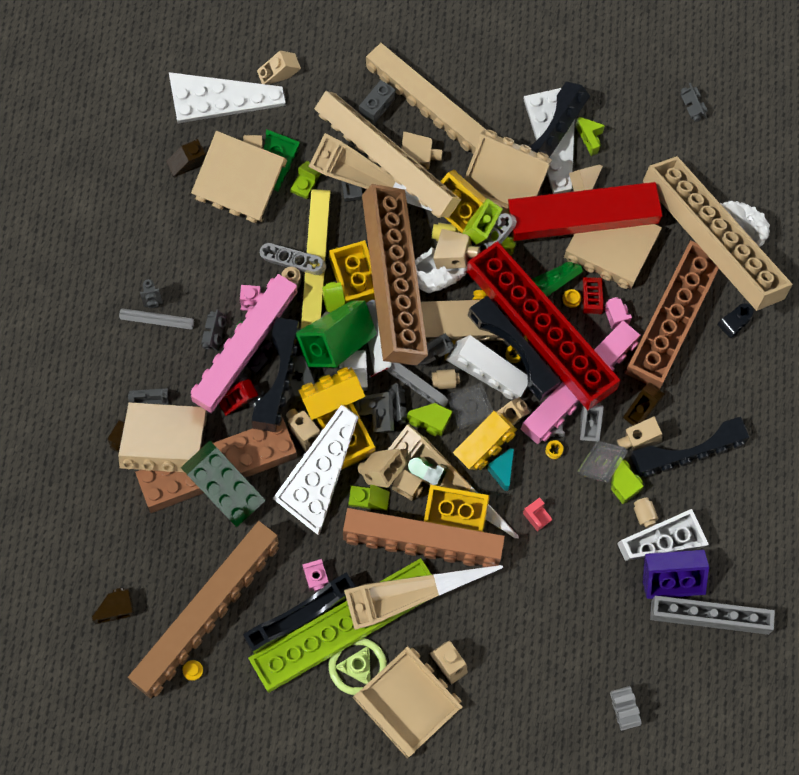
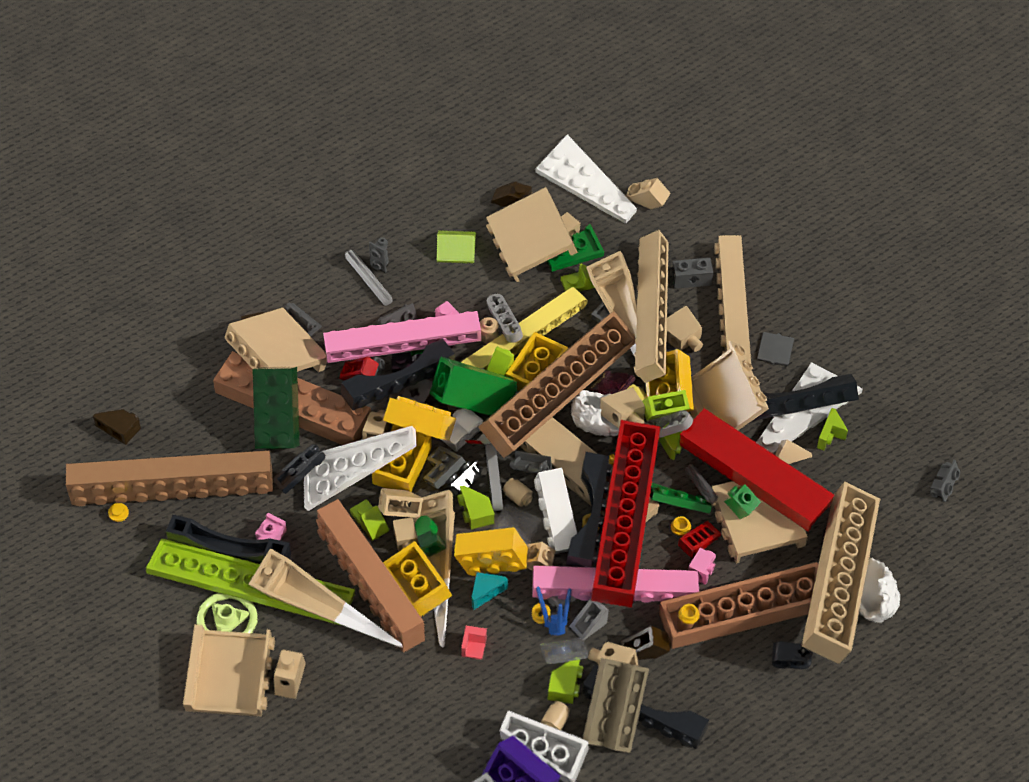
camera: 50 degrees right, 15 degrees down
(190, 234) = (456, 246): none -> lime slope
(283, 511) = (299, 468): none -> black hinge
(422, 235) = (612, 383): none -> clear pink slope
(488, 107) = (775, 349): none -> dark grey piece
(555, 255) = (701, 484): none -> dark grey axle
(574, 446) = (557, 621): none -> blue plant
(603, 243) = (742, 501): none -> green brick
(657, 357) = (689, 614): none -> yellow plate
(679, 465) = (615, 705): none -> dark tan slope

